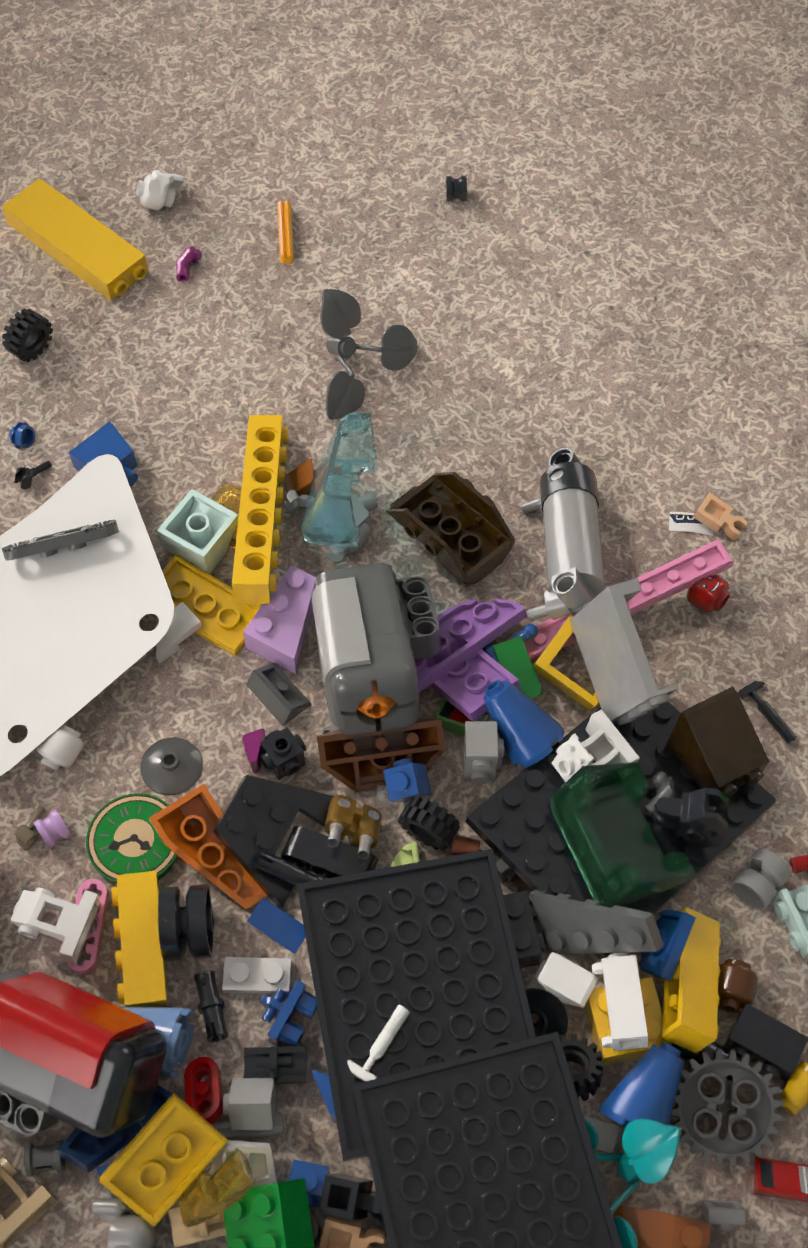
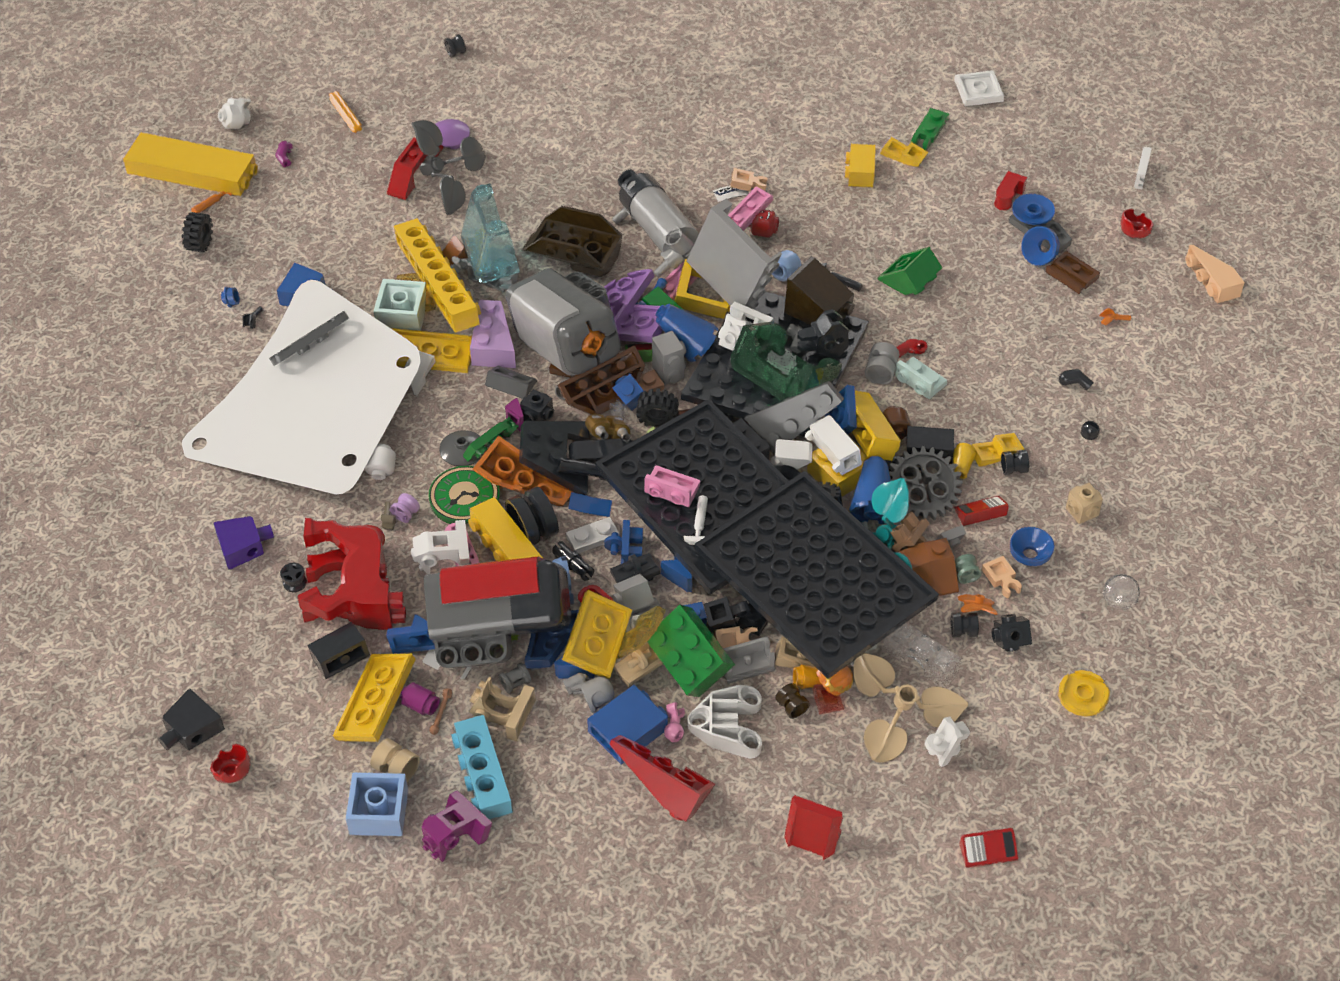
camera: 25 degrees left, 10 degrees down
(69, 296) = (208, 202): none -> orange piece
(208, 772) = (480, 445): none -> green hinge
(295, 351) = (404, 168): none -> red slope
(370, 974) = (671, 486): none -> bright pink bracket
(389, 306) = (453, 132): none -> medium lavender dish
(446, 772) = (651, 380): none -> nougat plate
(669, 1192) = (909, 532): none -> medium nougat hips
(705, 667) = (788, 264): none -> light blue head

